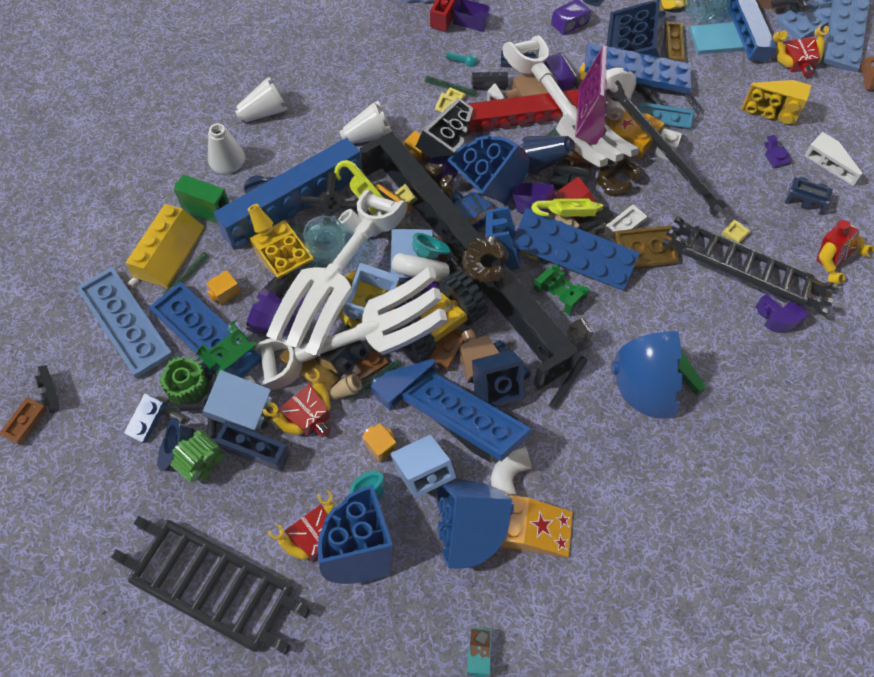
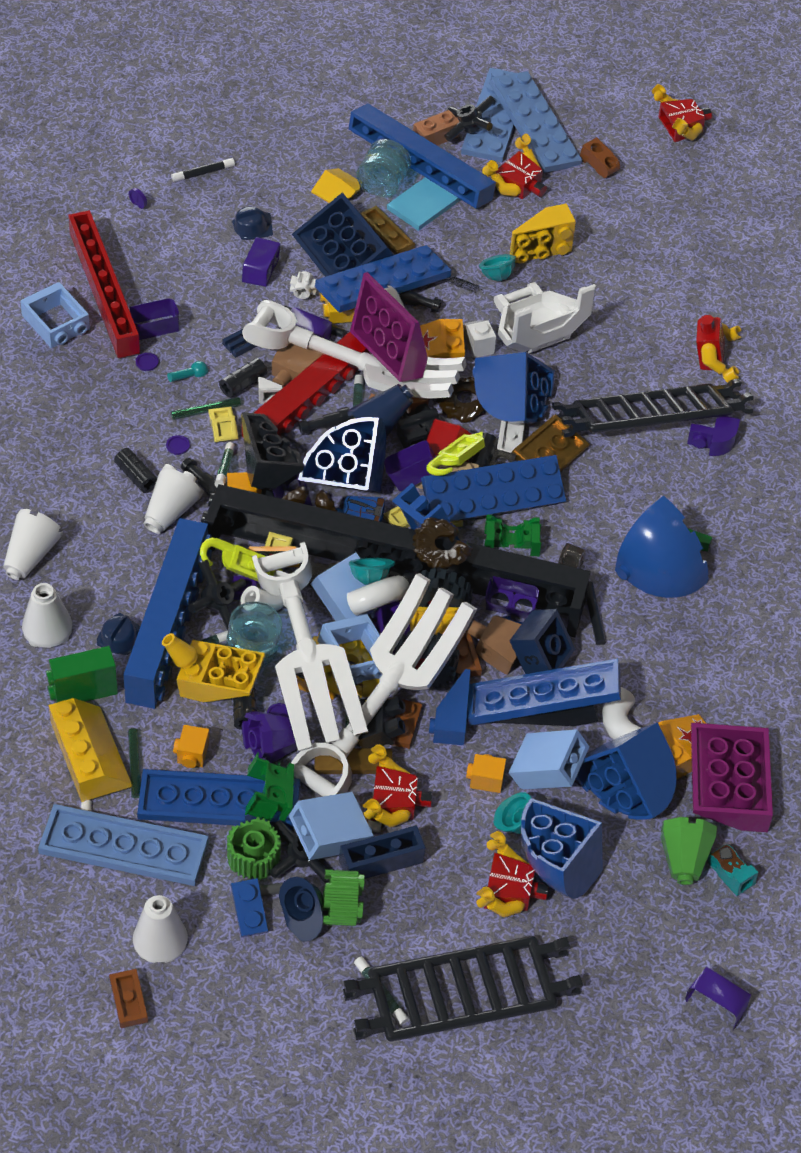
camera: 45 degrees left, 10 degrees down
(49, 396) = (121, 952): black plate -> none
(79, 392) = (159, 931): none -> white cone
(163, 549) = (394, 1008): none -> bar
(345, 387) = (409, 749): tan cone -> none
(367, 385) = (423, 729): clear green piece -> none
(369, 93) = (135, 470): none -> black axle
(403, 128) = (204, 479): none -> black piece
(412, 98) = (177, 445): none -> dark purple piece
(418, 127) = (225, 464): none -> clear green bar
(445, 39) = (147, 361): none -> dark purple piece
(457, 611) = (687, 847): none -> bright green cone
(507, 316) = (508, 587): none -> dark purple piece
(516, 137) = (327, 421): none -> black piece
(542, 579) = (732, 775): none -> magenta slope
(581, 43) = (303, 285): none -> white gear
(656, 189) = (513, 386): none -> blue brick
(666, 149) = (430, 319): black bar -> none
(669, 115) = (455, 308): dark azure tile -> none
(723, 153) = (541, 317): none -> white piece
(727, 106) = (498, 266): none -> teal piece
(736, 231) = (612, 385): light yellow tile -> none
(776, 155) = (571, 283): dark purple plate -> none
(809, 193) = (644, 308): dark blue window -> none
(834, 158) = (633, 262): white slope -> none

